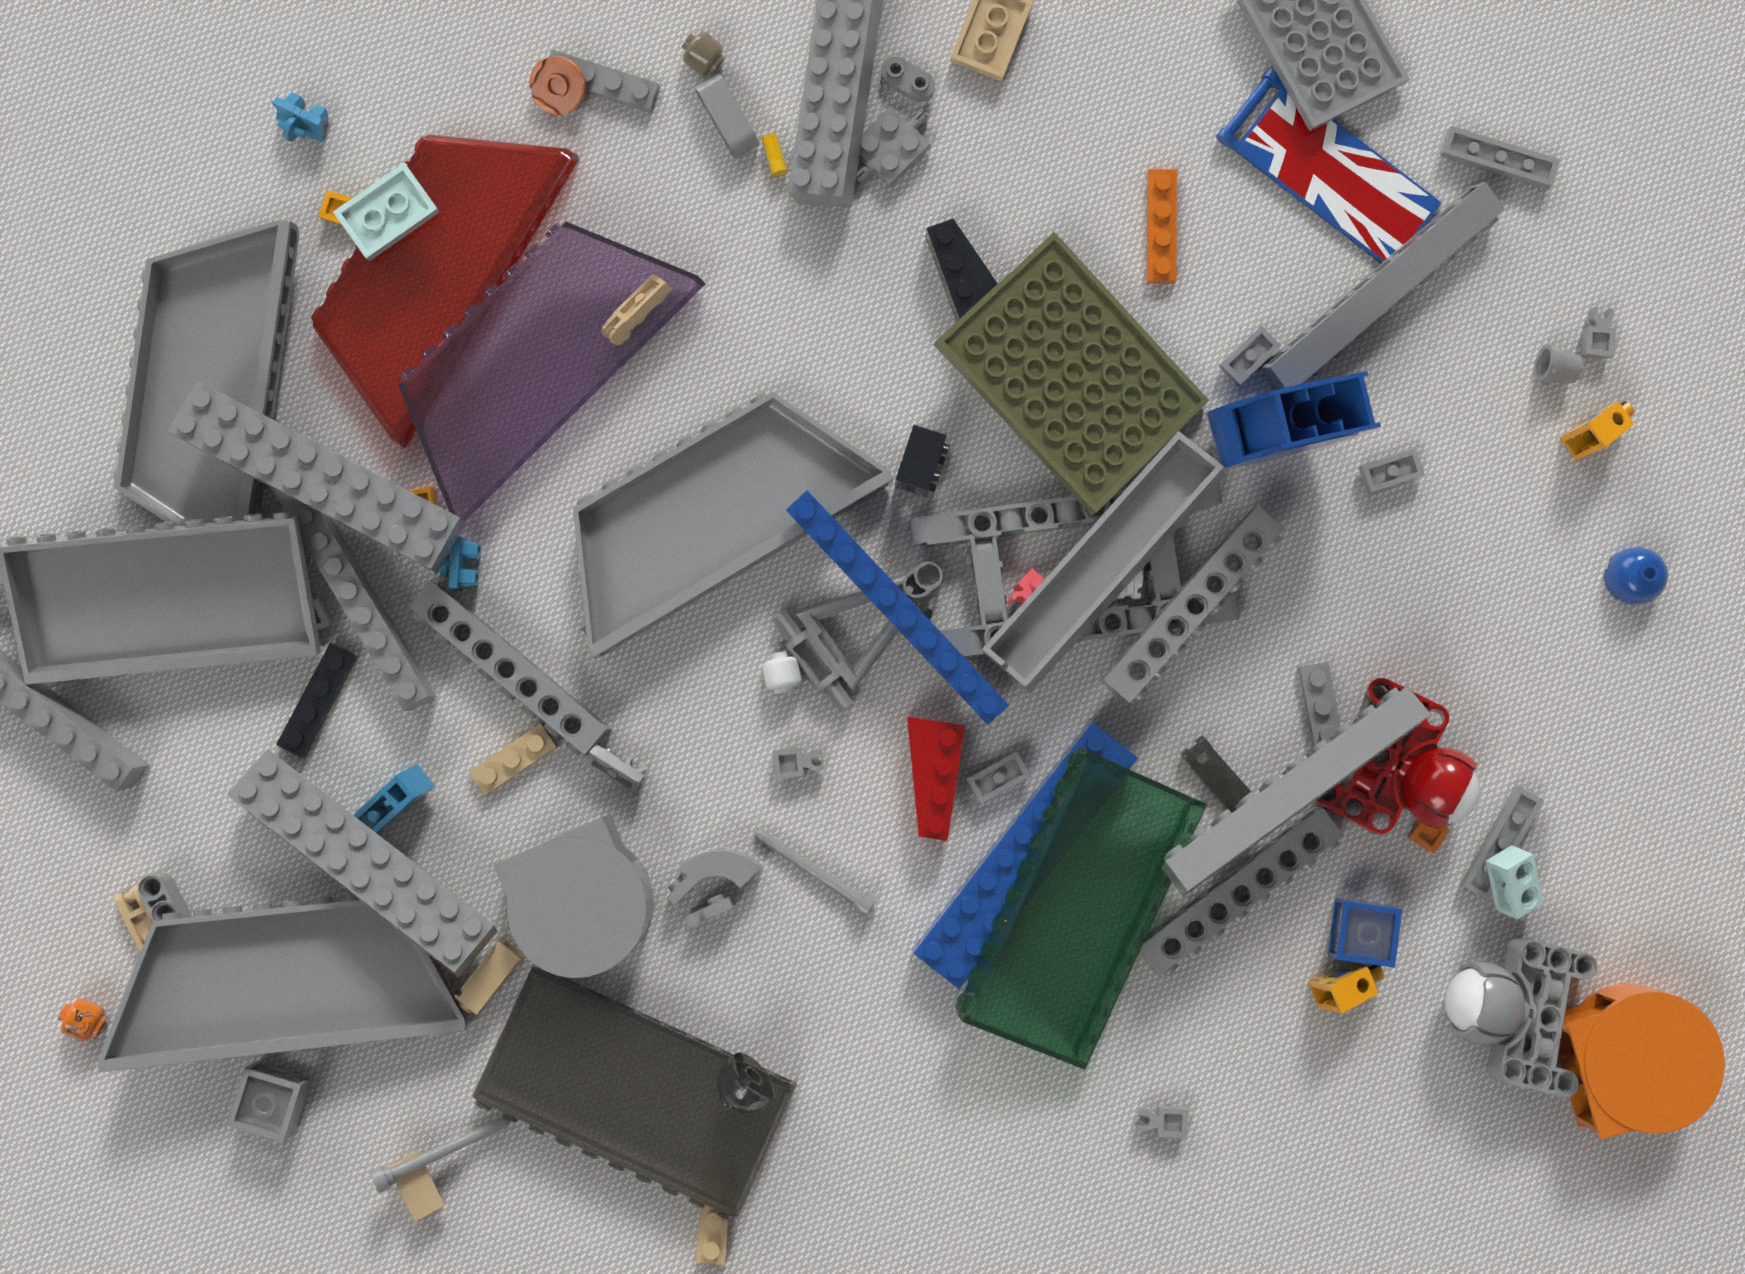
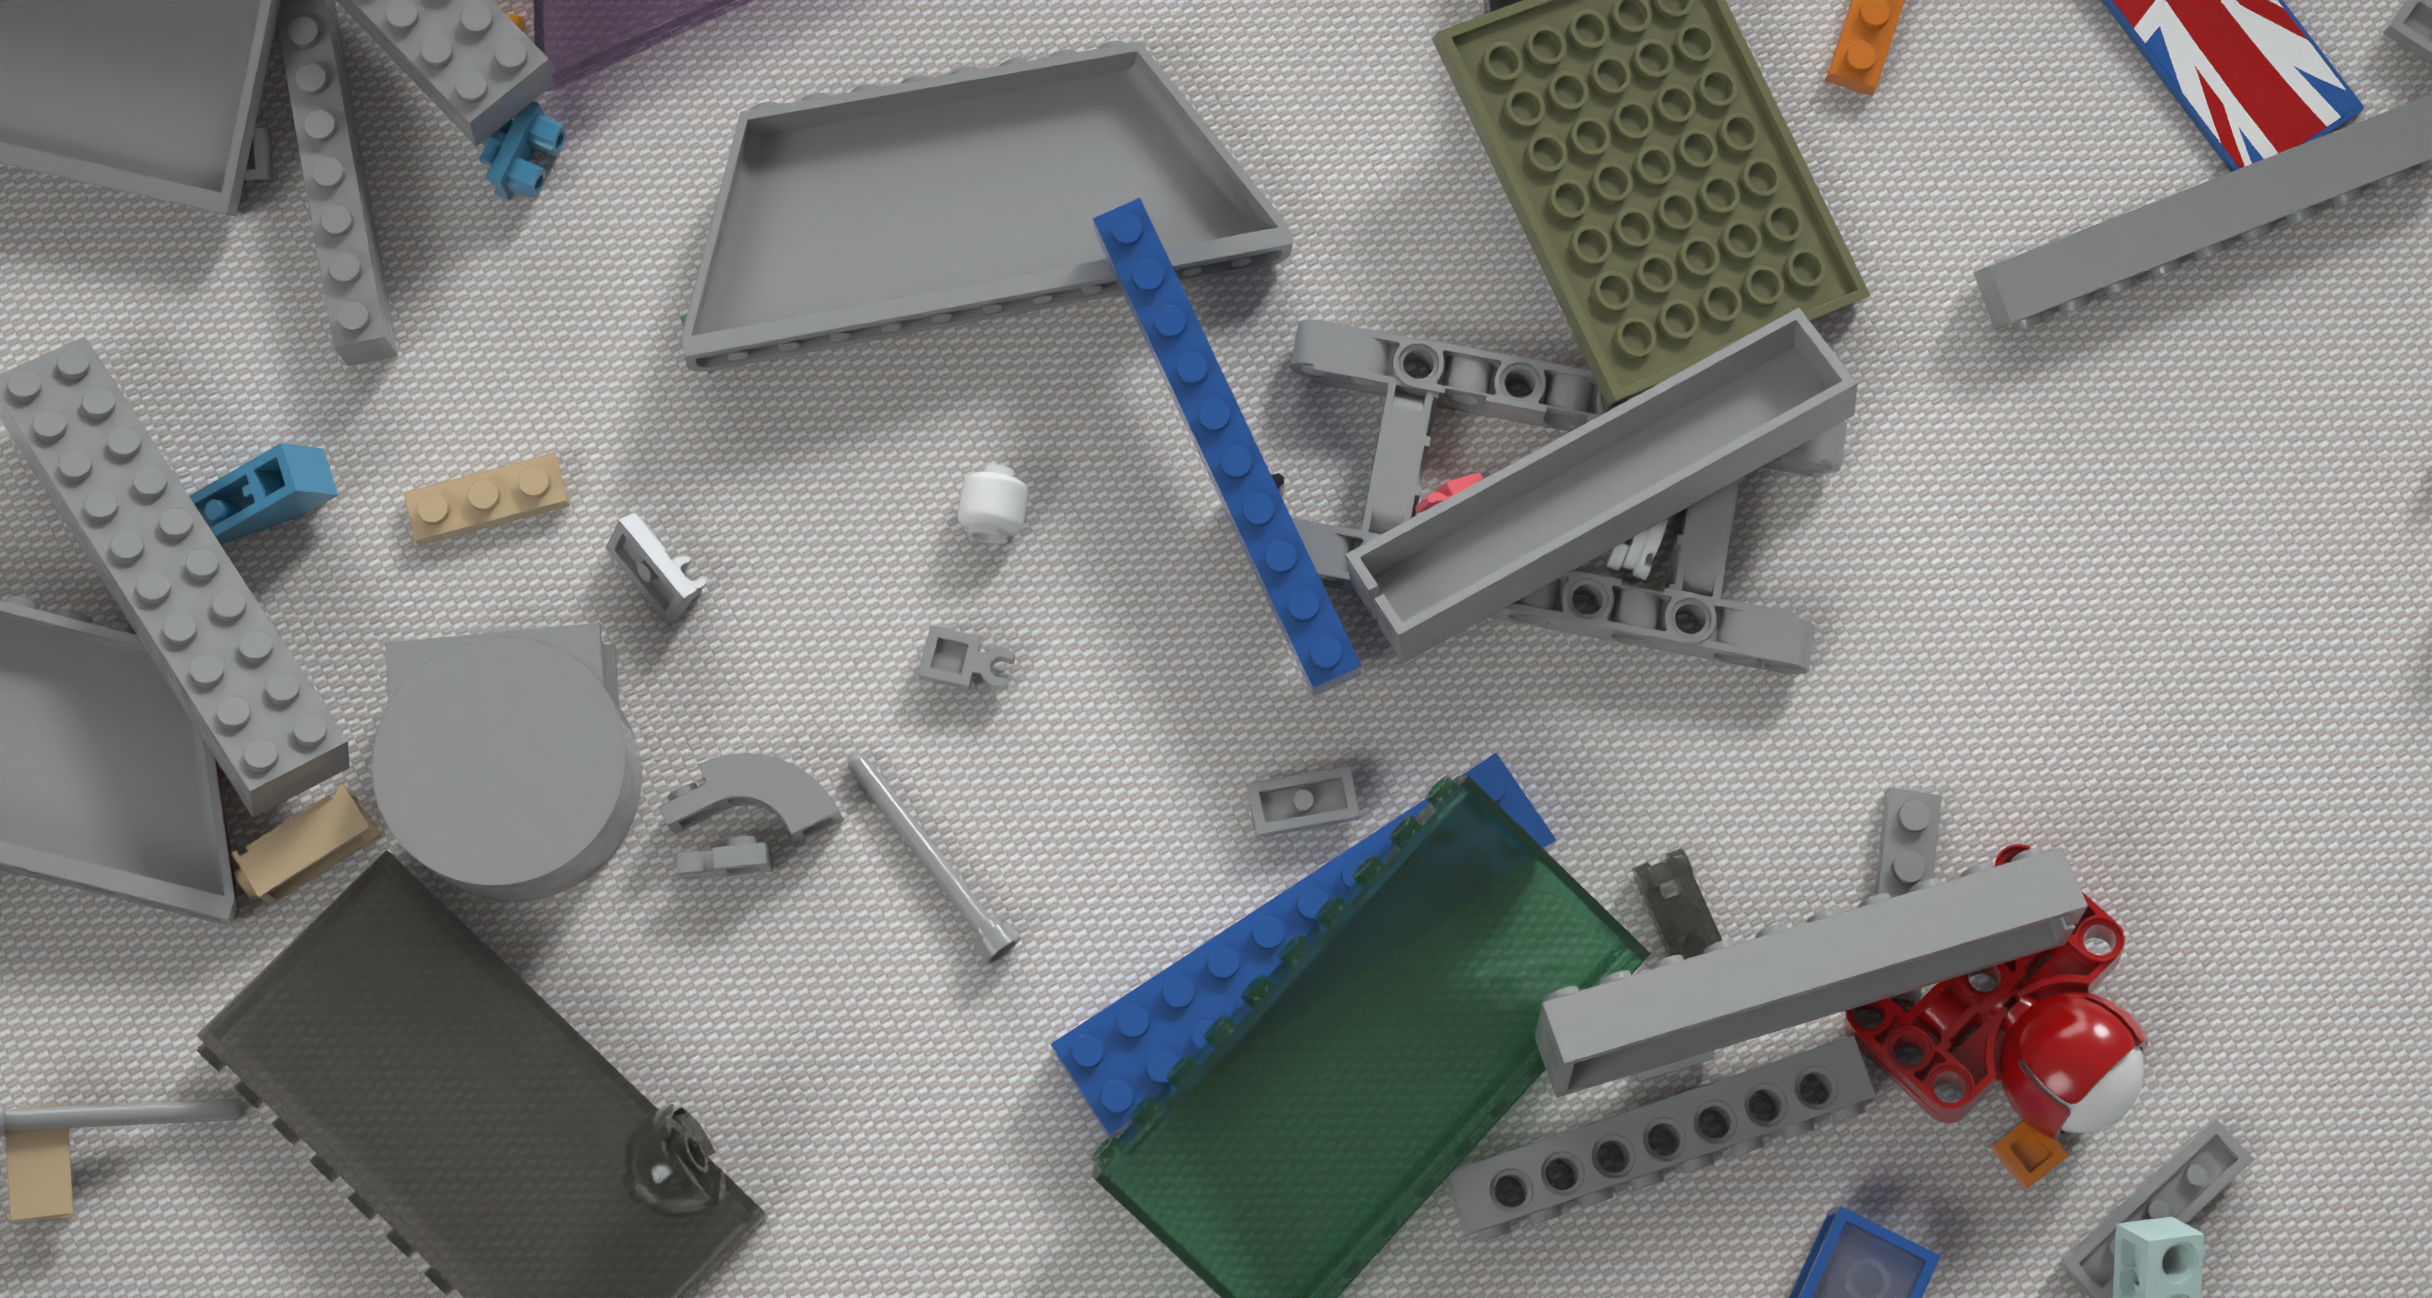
camera: 15 degrees right, 10 degrees down
(317, 700) = (197, 295): black plate -> none
(435, 597) = (456, 193): light grey brick -> none
(819, 653) = (1069, 497): light grey piece -> none
(920, 460) = (1348, 231): black piece -> none
(935, 765) = (1199, 742): red wedge -> none
(1250, 356) = (1962, 247): light grey plate -> none
(1255, 522) = (1885, 511): light grey brick -> none
(1291, 420) = (1993, 349): blue brick -> none
(1391, 471) = (2148, 512): light grey plate -> none

